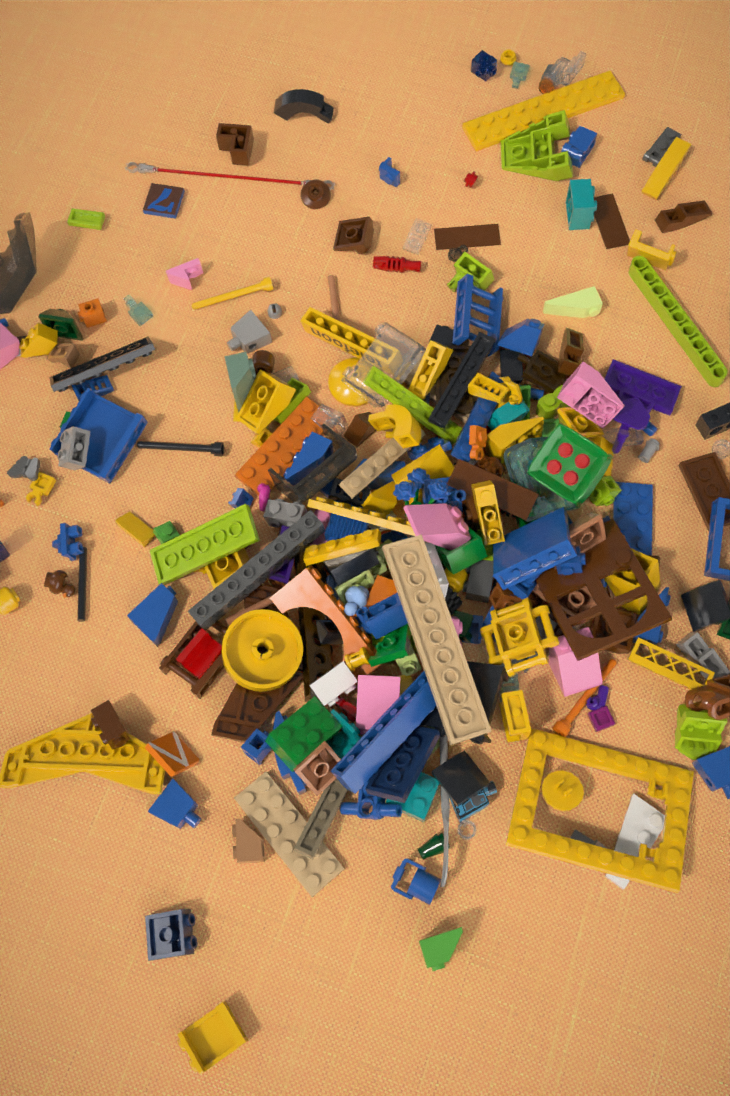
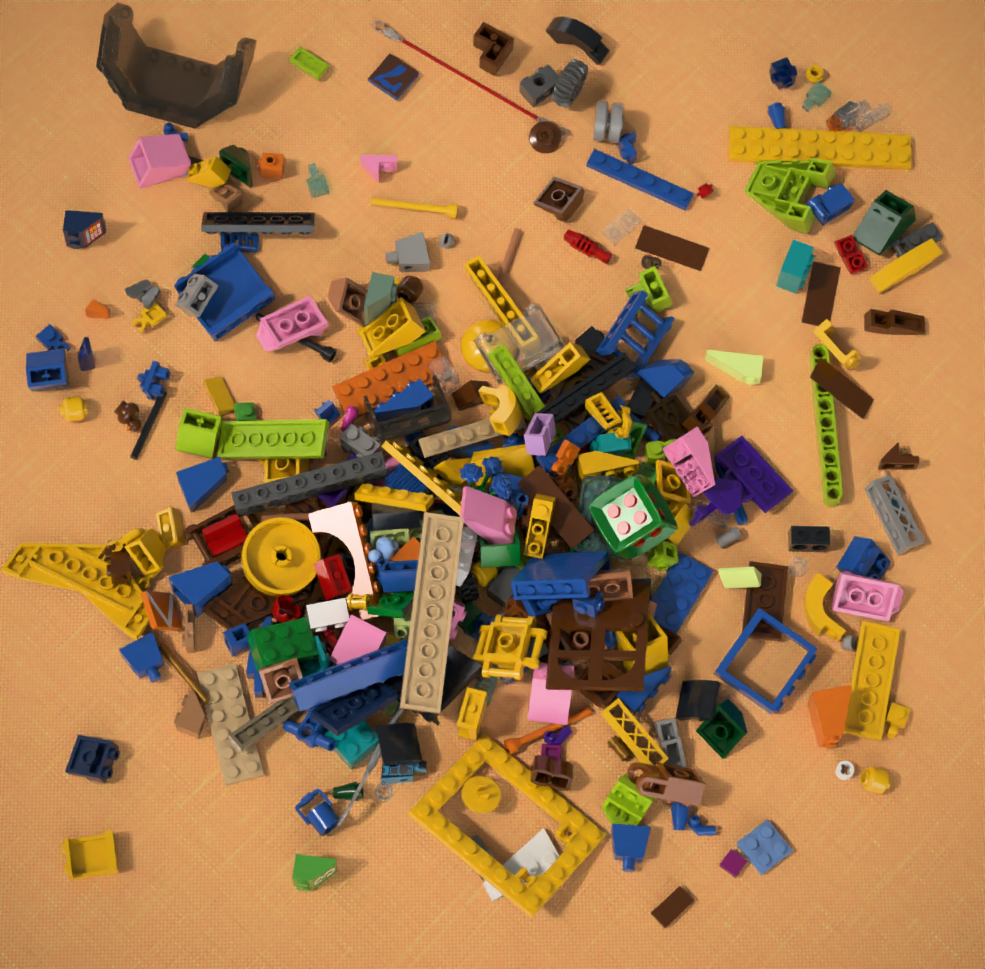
camera: 15 degrees right, 0 degrees up
(131, 570) = (198, 433): none -> lime slope
(131, 703) = (145, 550): none -> yellow torso
(145, 670) = (170, 527): none -> yellow slope
(172, 437) = (291, 324): none -> bright pink slope
(199, 712) = (201, 585): none -> blue slope
(204, 753) = (188, 623): none -> medium nougat wing
(214, 393) = (348, 299): none -> nougat slope
(222, 805) = (184, 674): none -> pearl gold bar
(290, 155) = (535, 94): none -> dark grey brick
(290, 698) = (285, 610): none -> red hair
(316, 140) = (570, 83): none -> dark grey gear
(320, 646) = (332, 576): none -> red panel
(363, 157) = (608, 121): none -> light grey wheel
(411, 195) = (640, 179): none -> blue plate
(445, 431) = (540, 434): none -> lavender piece
(496, 99) = (777, 115): none -> blue cone
(614, 179) = (850, 255): none -> red slope
(614, 737) = (551, 773): none -> reddish brown brick
(631, 140) = (884, 222): none -> slope
(659, 683) = (619, 748): none -> pearl gold pin
(673, 284) = (841, 388): none -> reddish brown sticker
(681, 479) = (740, 577): none -> yellowish green slope

